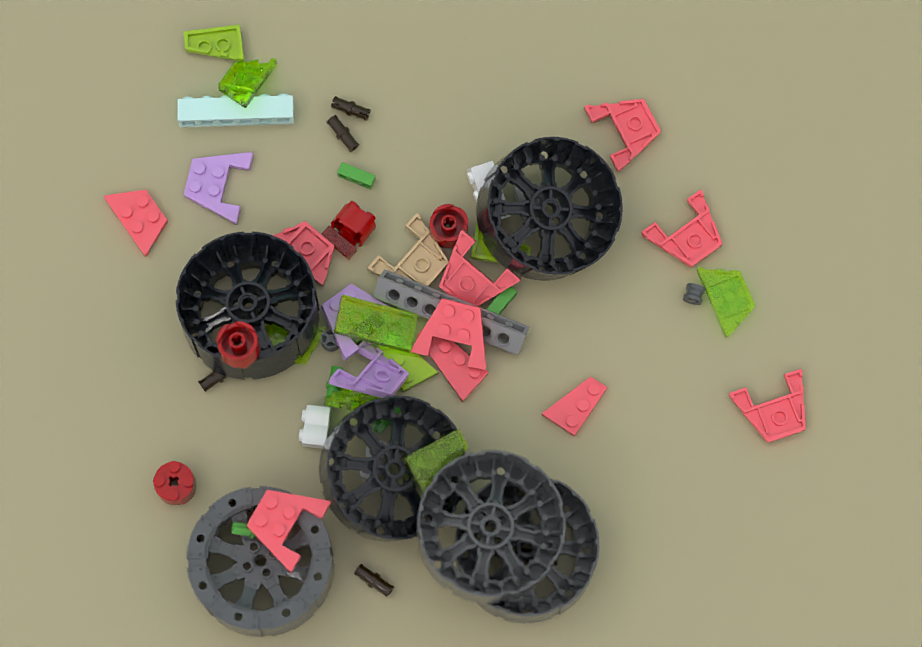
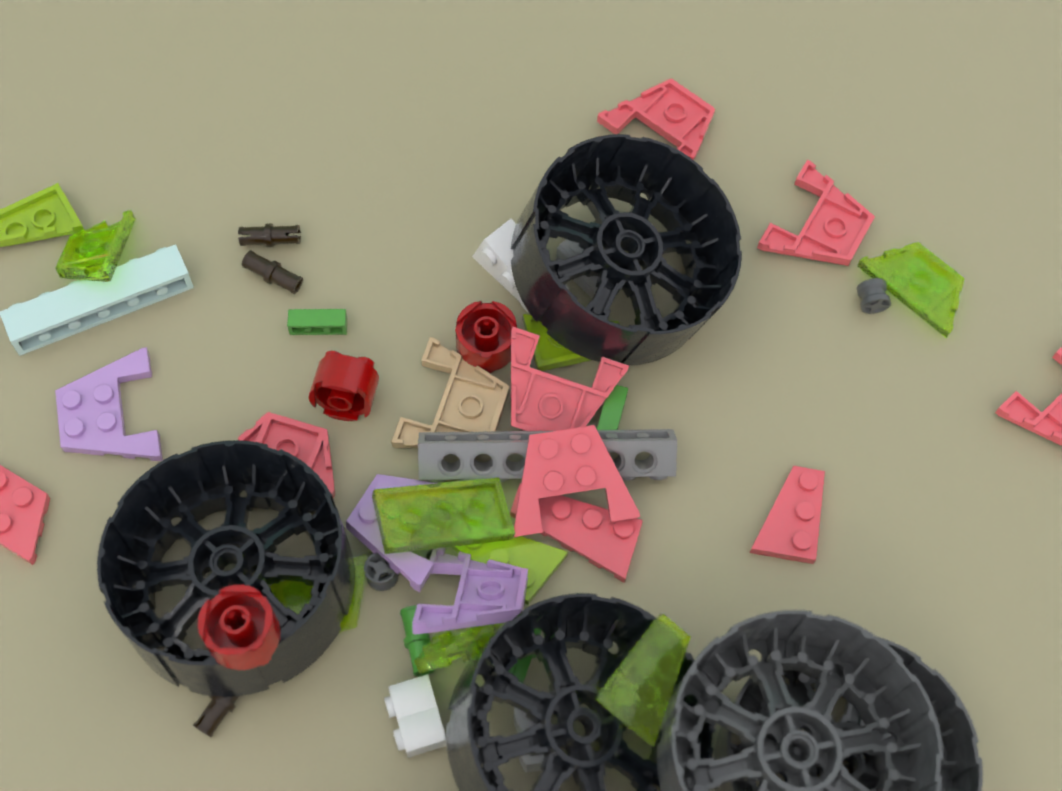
camera: 25 degrees left, 10 degrees down
(340, 243) = (337, 424): clear red piece -> none

